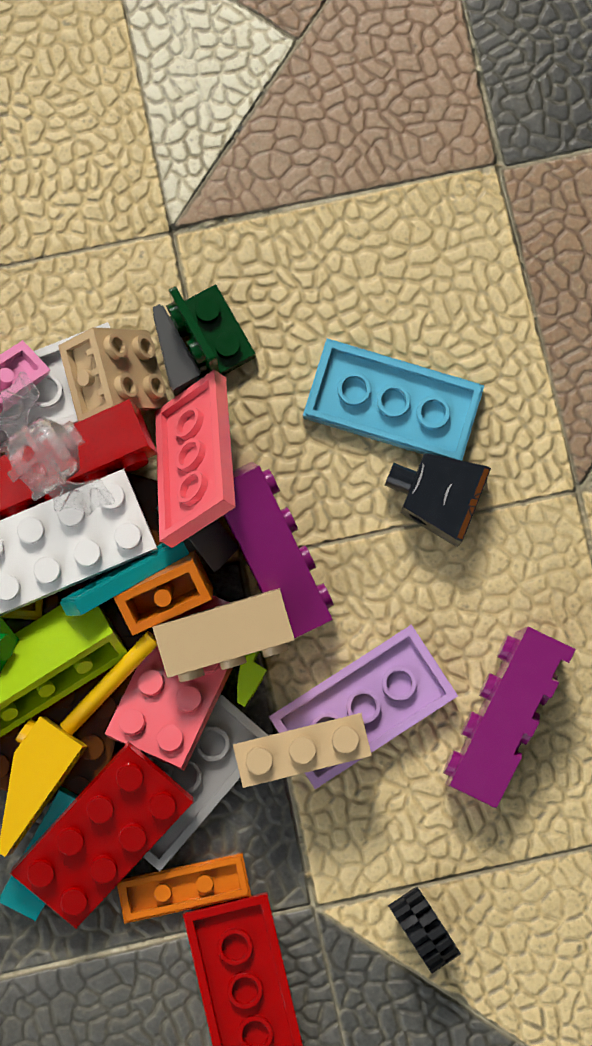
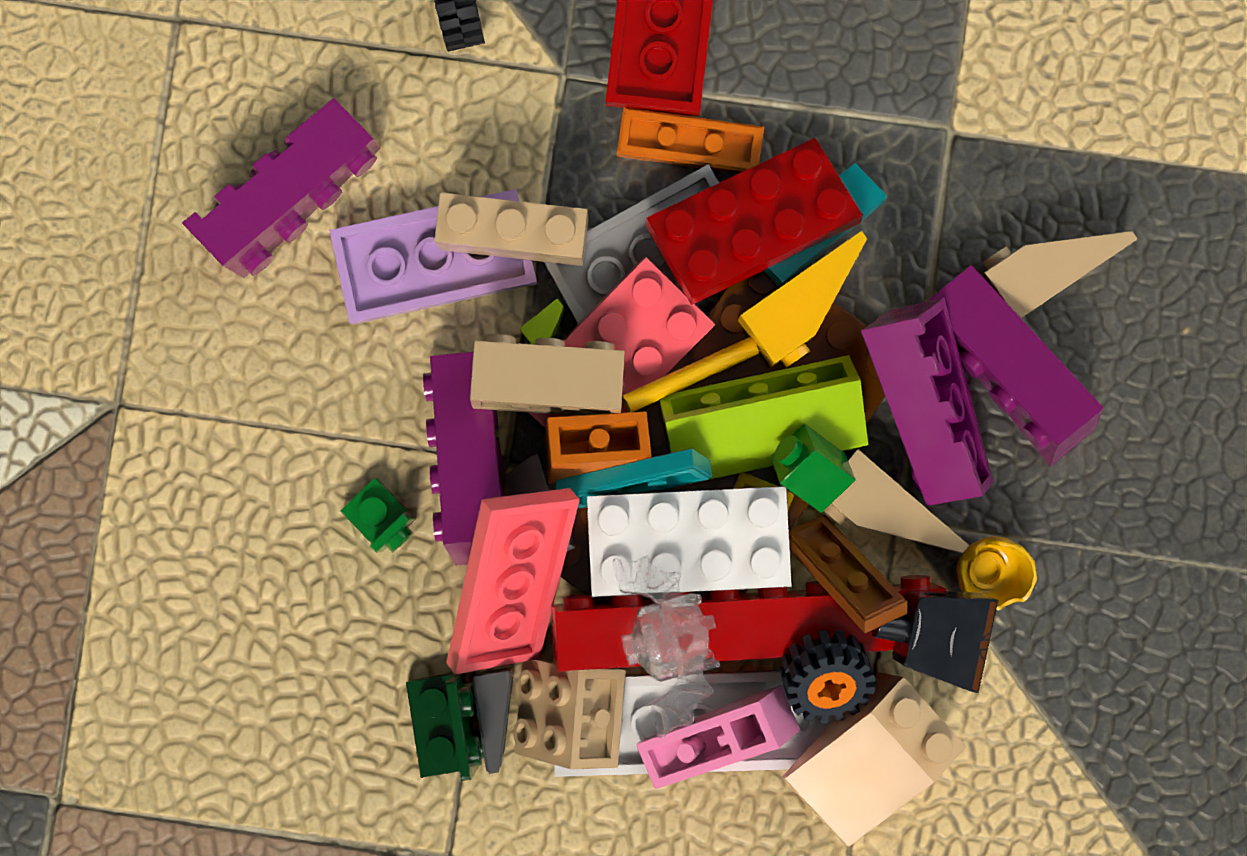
camera: 155 degrees left, 5 degrees up
(326, 476) = (380, 517): none -> green bracket
(392, 401) = (276, 574): medium azure tile -> none
(440, 494) = (263, 451): black torso -> none

